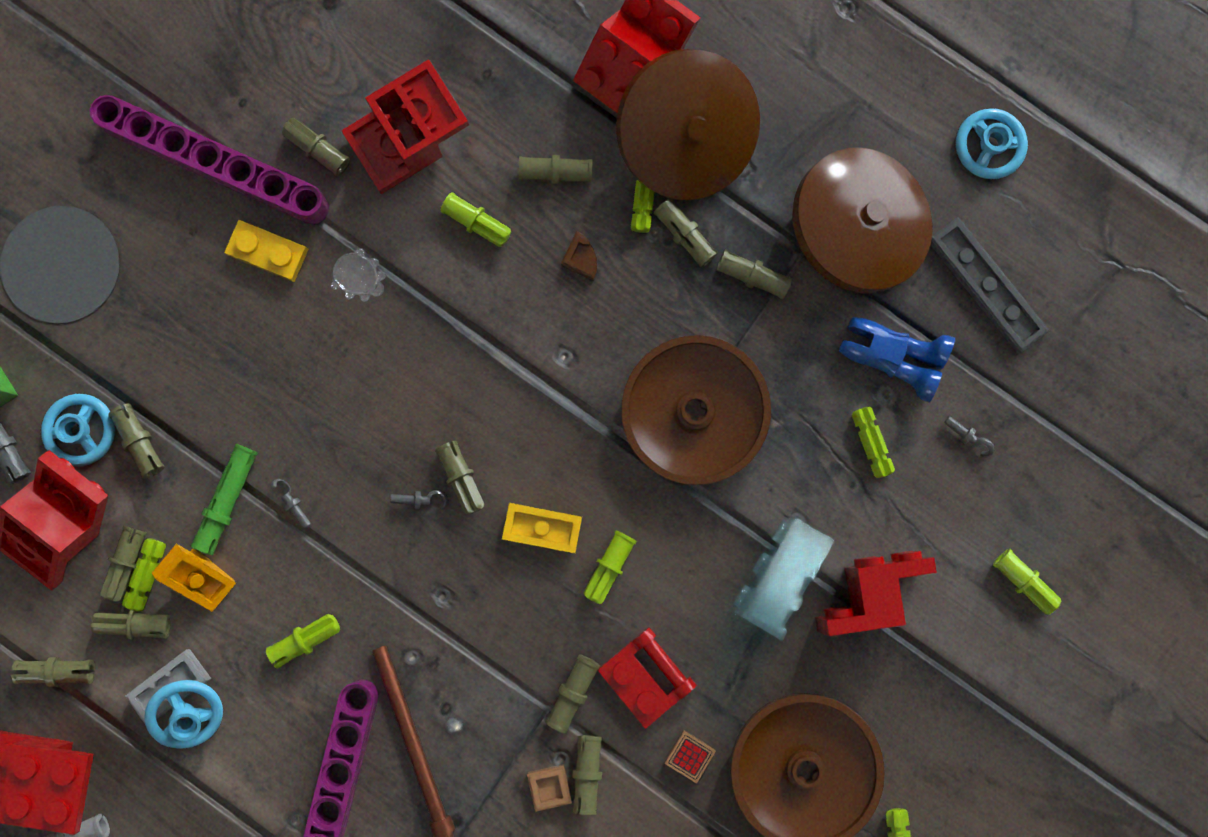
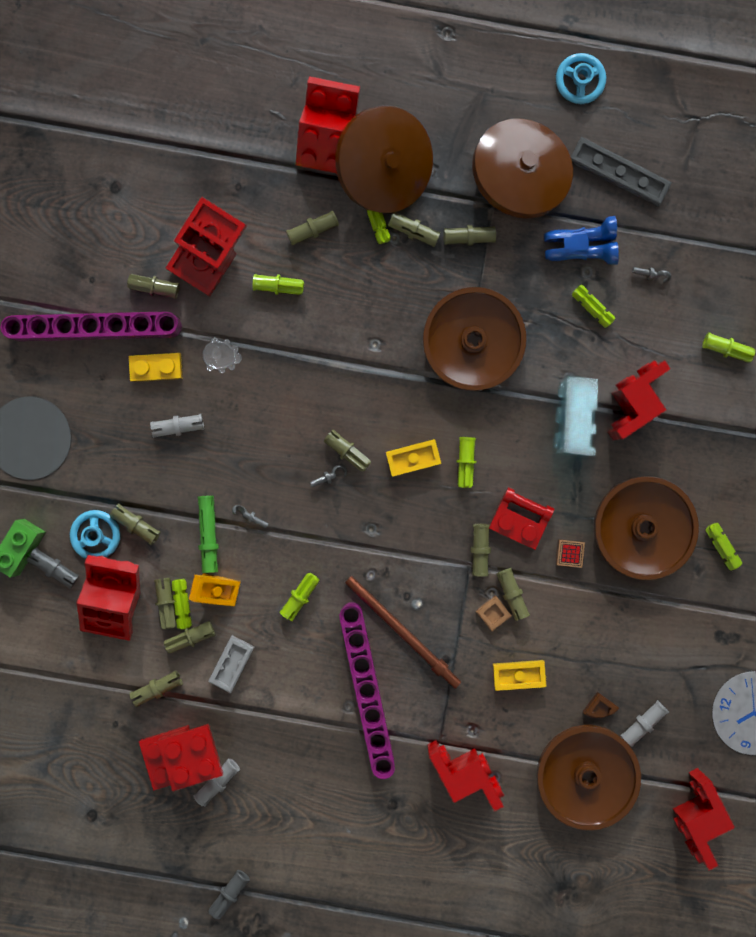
camera: 30 degrees left, 5 degrees up
(186, 732) = (252, 687): medium azure piece -> none
(255, 338) = (177, 425): none -> light grey pin
(581, 257) = (355, 276): reddish brown tile -> none

